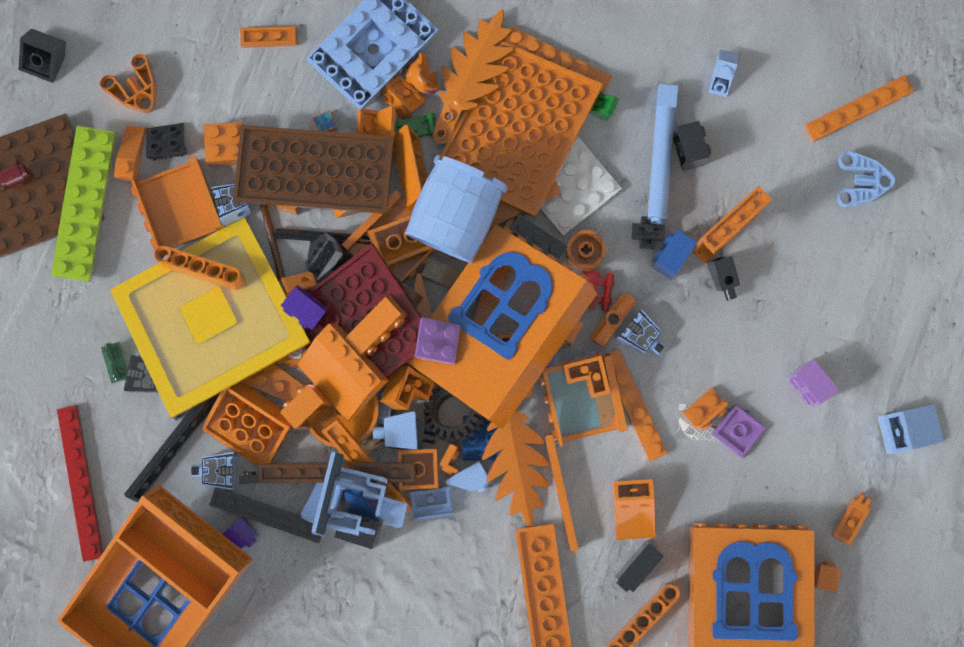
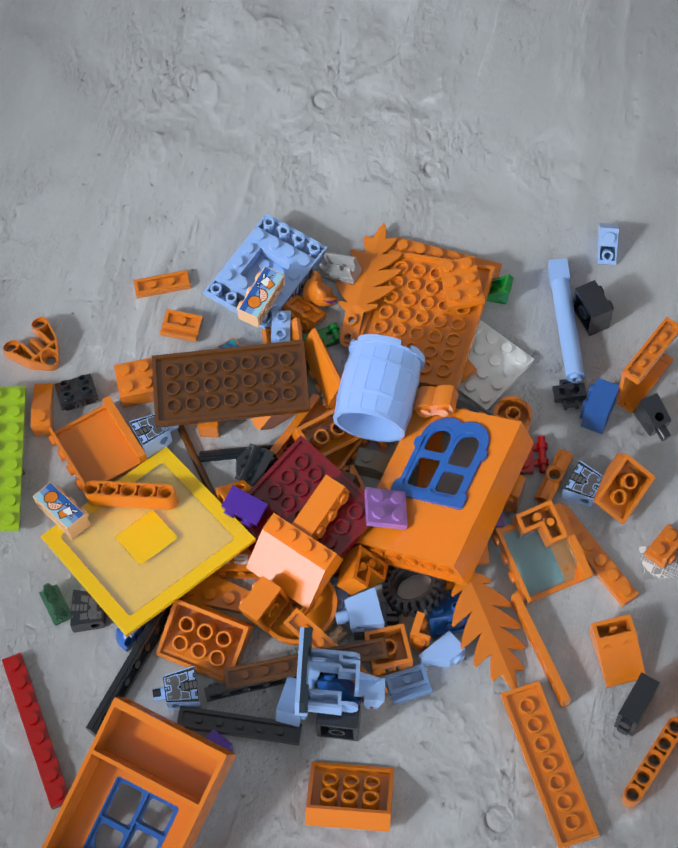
camera: 10 degrees left, 20 degrees down
(132, 269) = (62, 510): none -> brick
(280, 88) = (181, 325): none -> orange plate
(357, 601) = (349, 796): none -> orange slope
(360, 78) = (261, 296): none -> brick
(375, 113) = (280, 326): none -> light blue hinge
(448, 54) = (340, 268): none -> light grey hinge
(509, 233) = (435, 400): none -> orange brick
(564, 97) = (461, 283): none -> orange plate
(675, 346) = (622, 487): none -> orange slope

